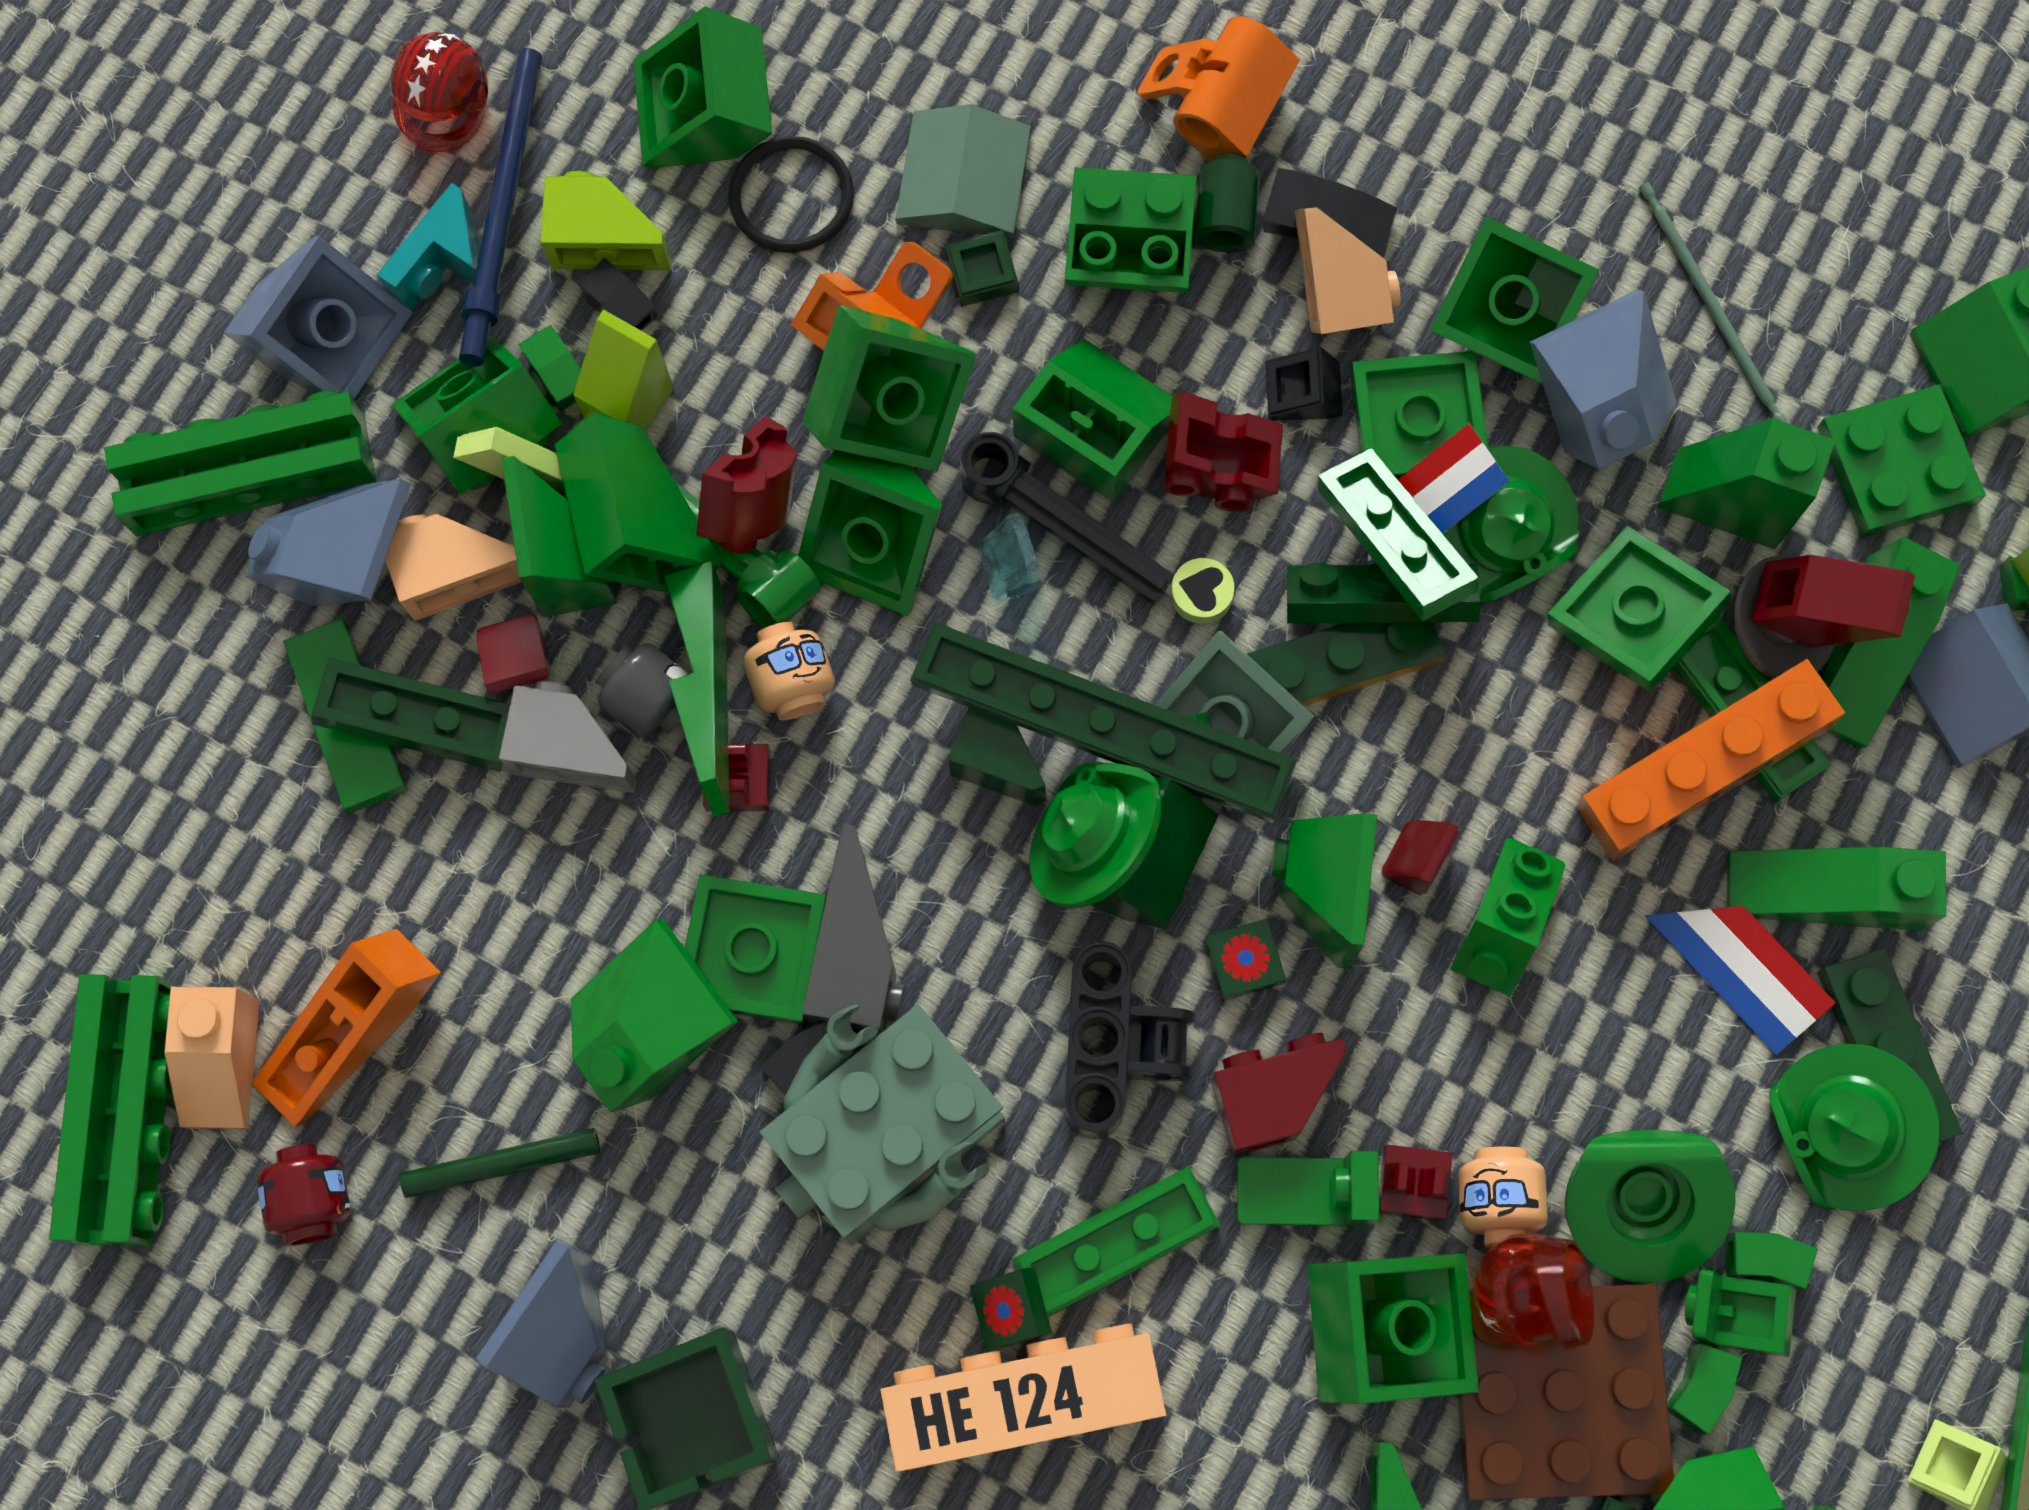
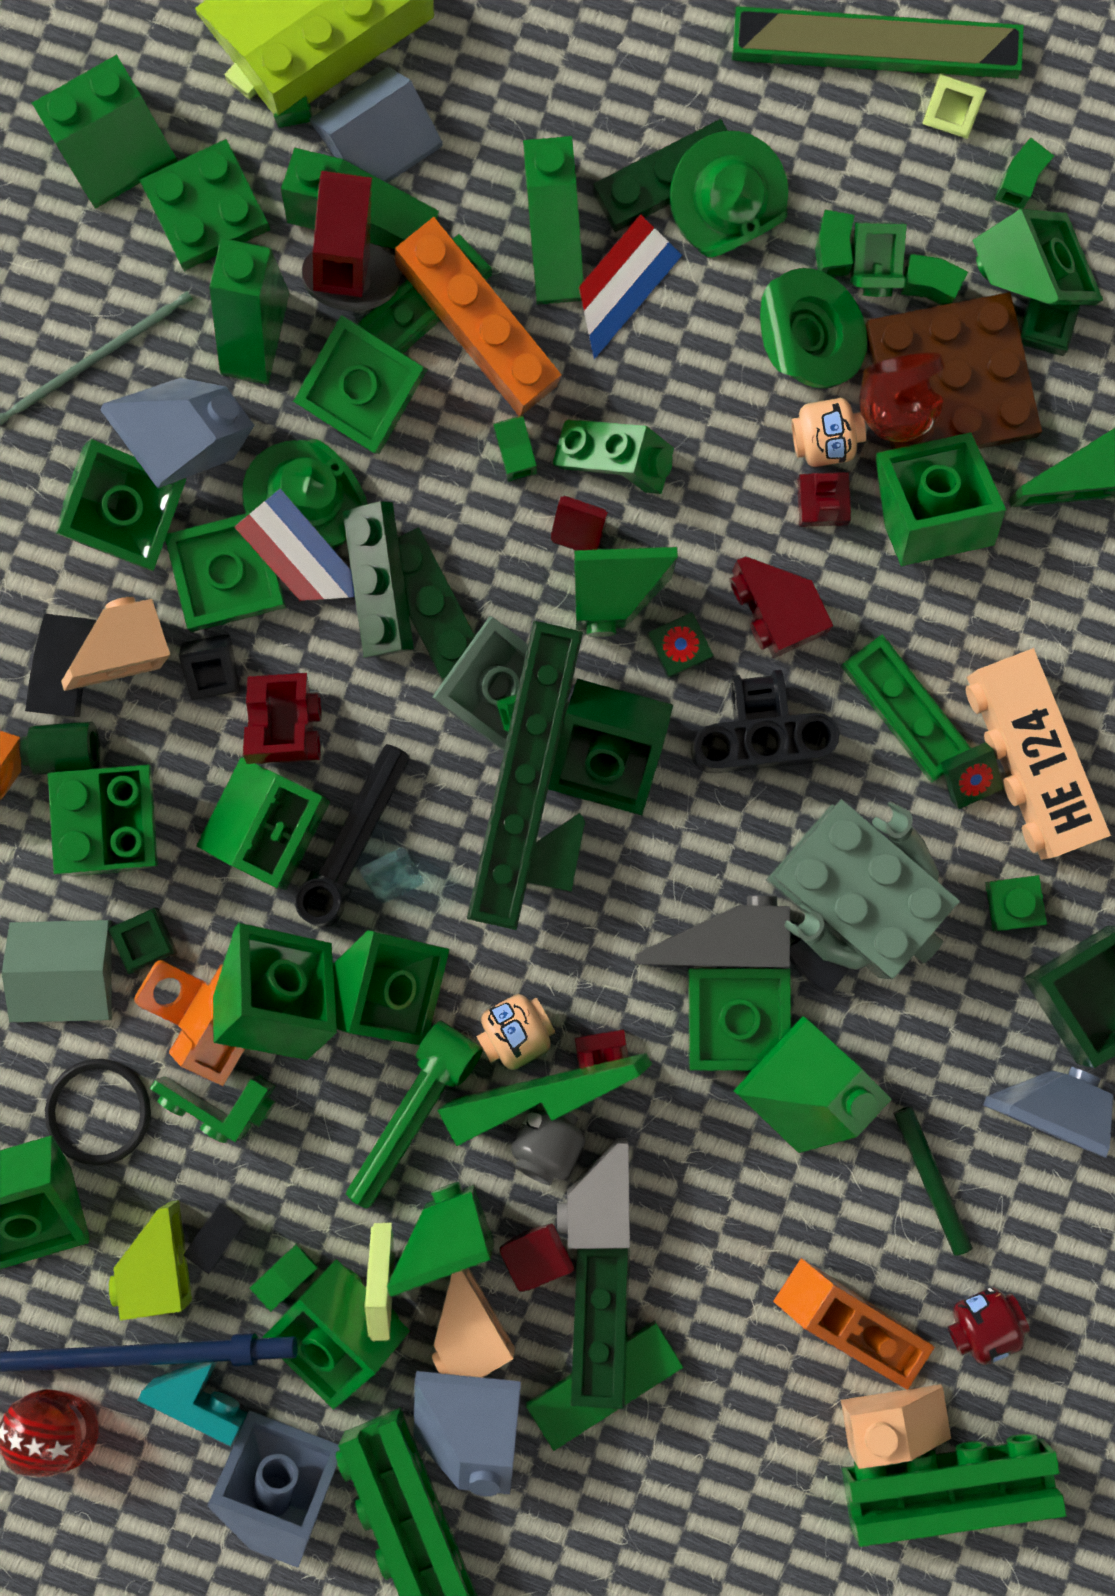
camera: 100 degrees left, 10 degrees up
(622, 373) = (295, 1217): lime slope -> none
(627, 506) = (403, 1188): green slope -> none
(744, 326) = (251, 1107): none -> green bracket
(750, 492) = (380, 1088): dark red cylinder -> none
(832, 1340) = (1016, 903): none -> green plate
(1094, 833) = (612, 768): green hat -> none
(1202, 590) = (393, 720): yellowish green tile -> none
(1309, 1190) = (846, 570): green bracket -> none
(1397, 534) = (335, 570): plate -> none
(1535, 790) = (515, 448): none -> green piece

